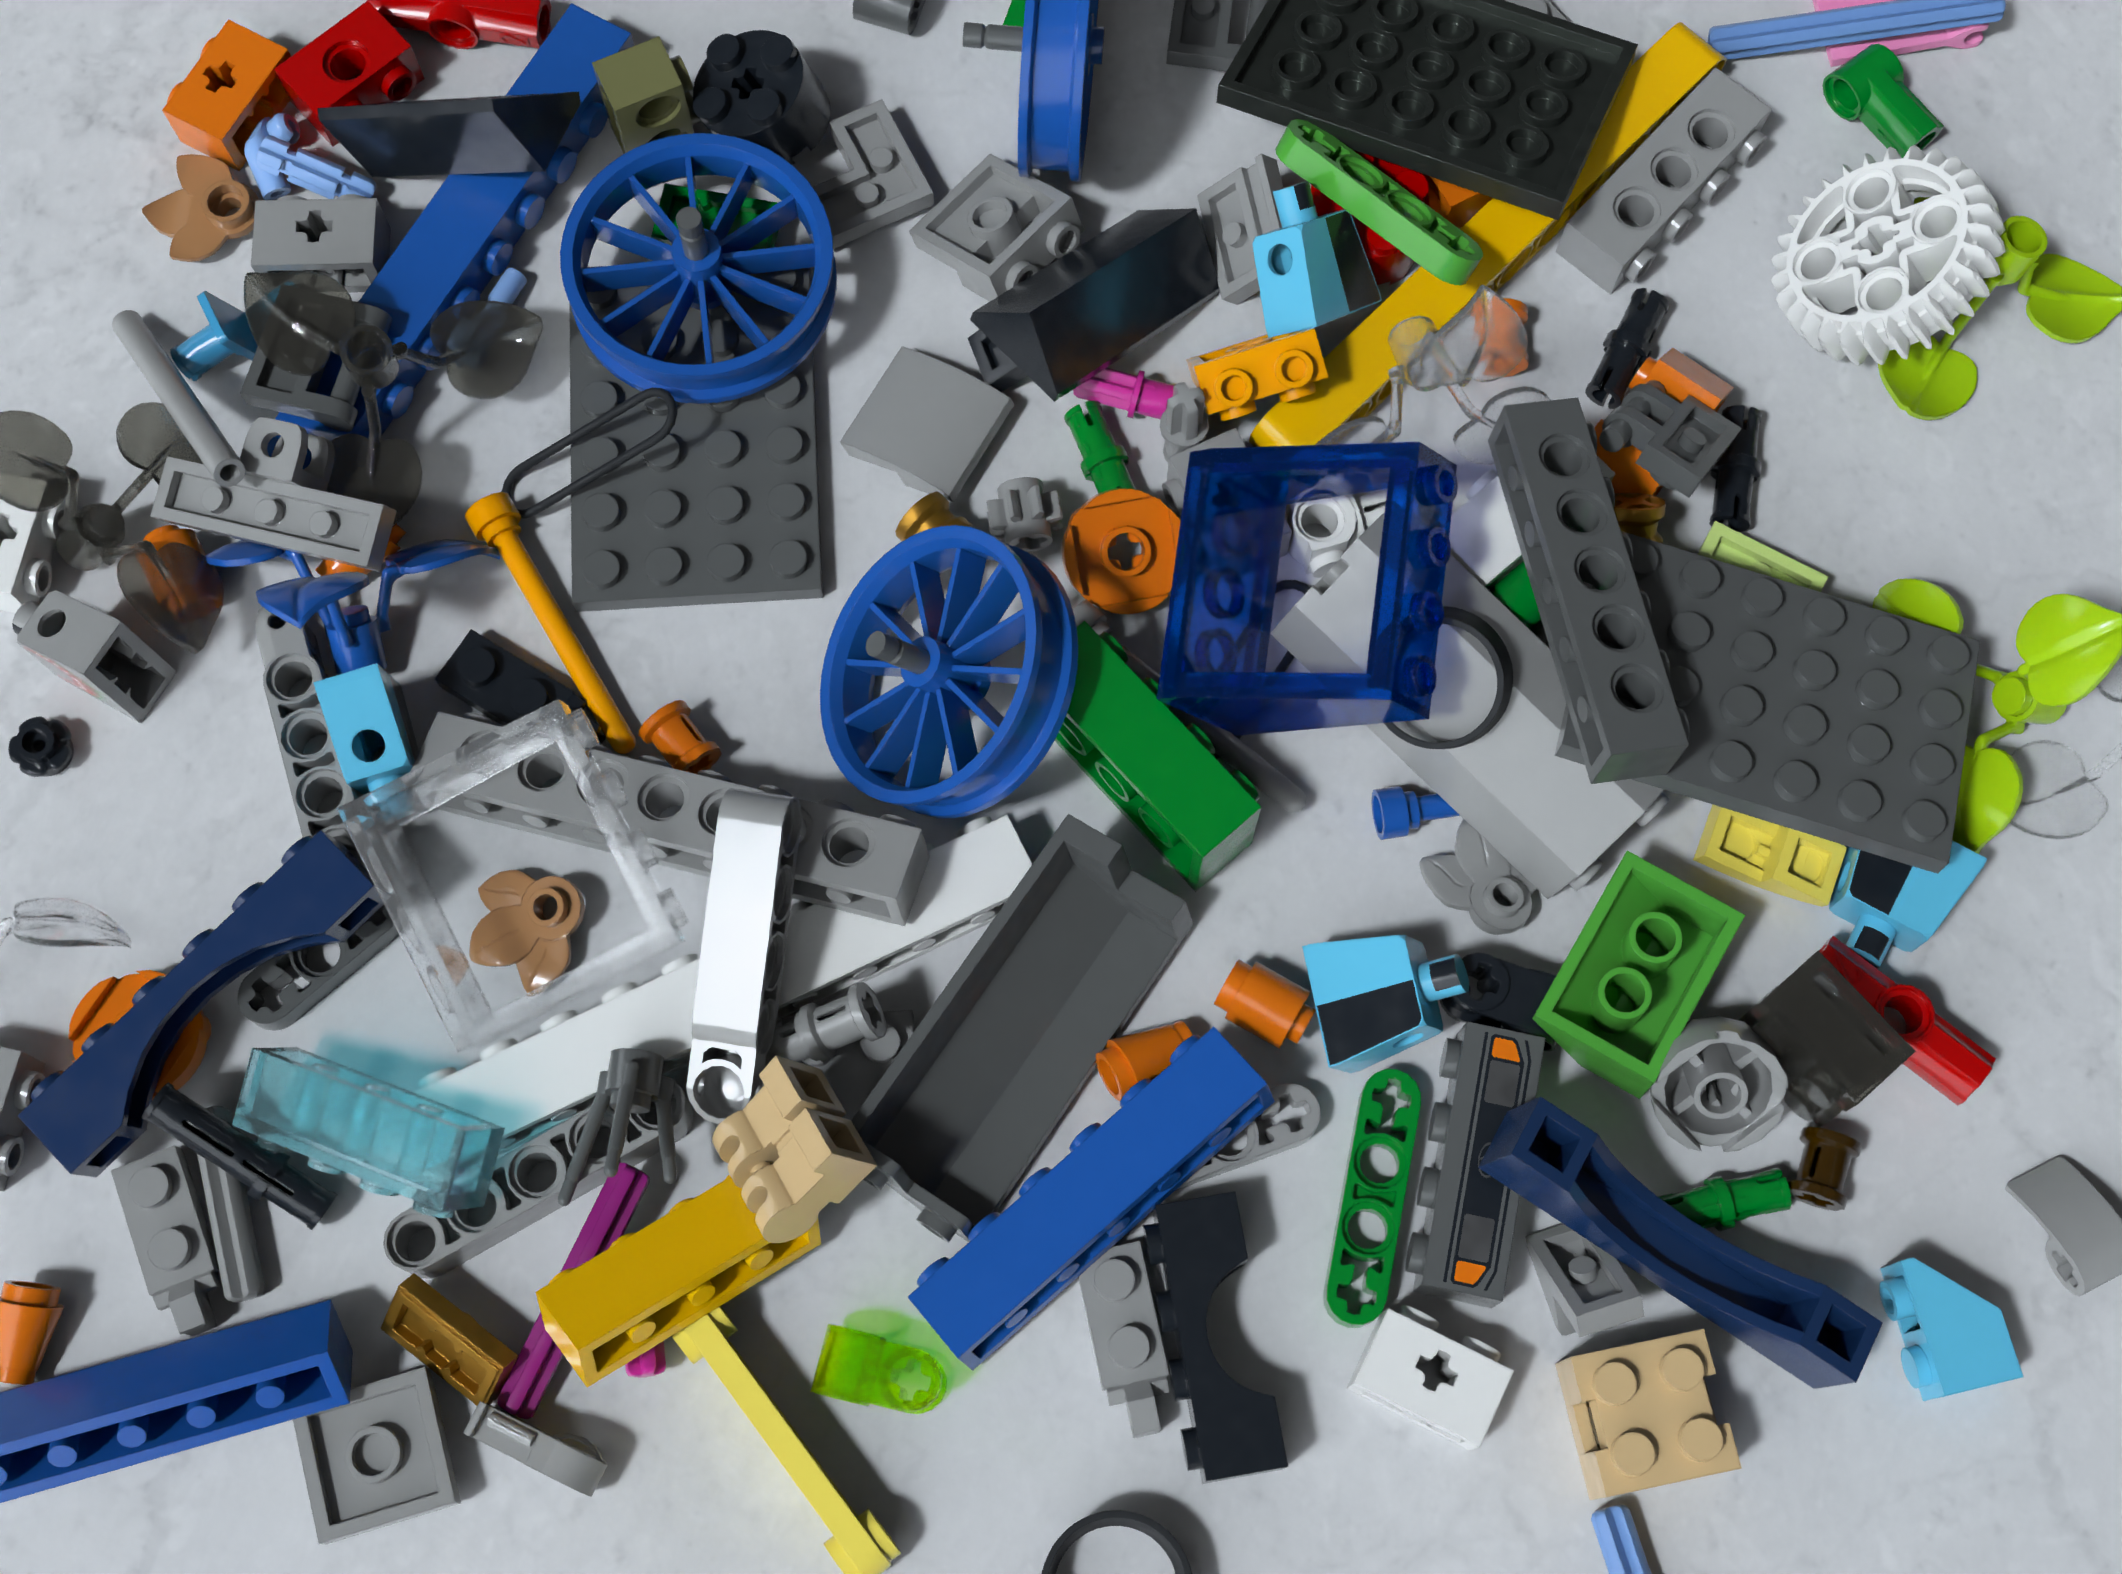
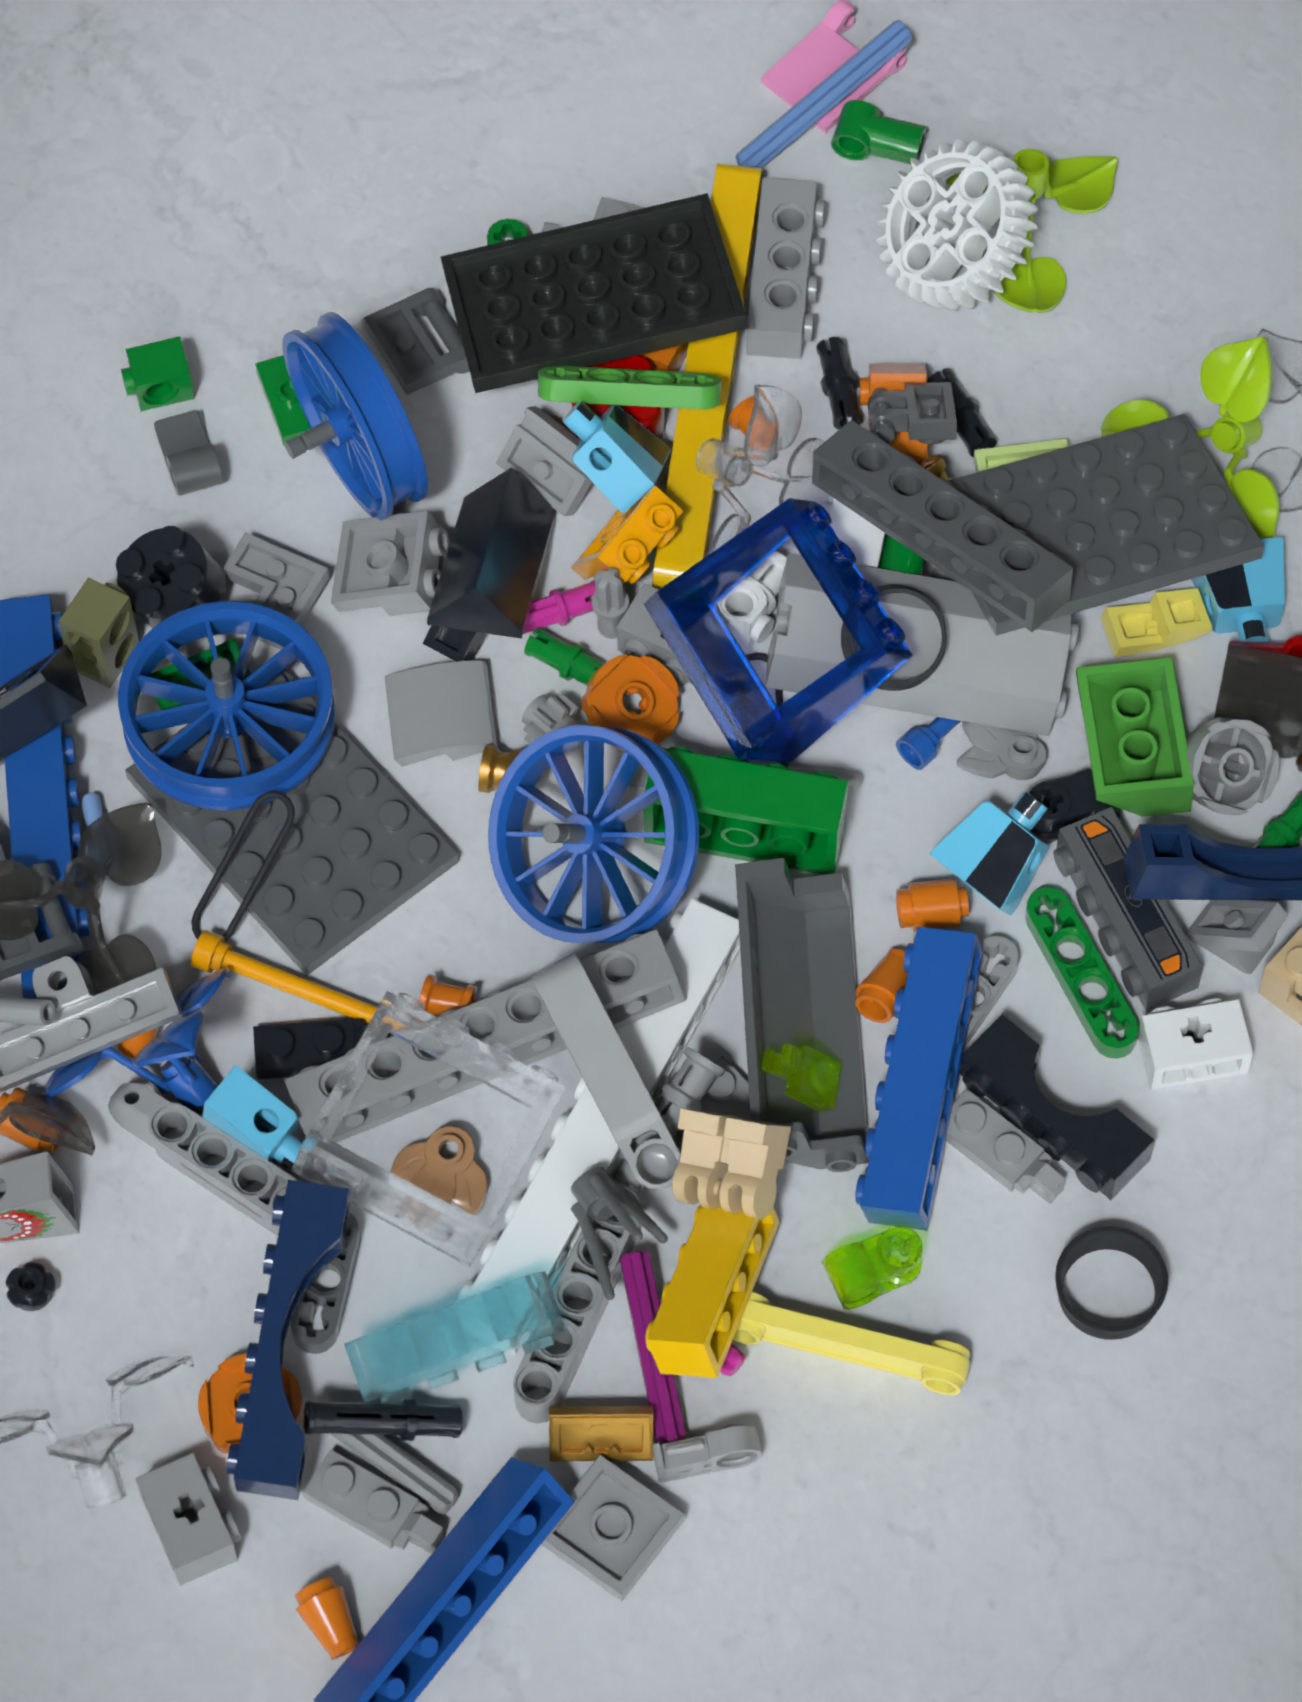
camera: 35 degrees left, 10 degrees down
(973, 1104) = (809, 1075): none -> clear neon green plate

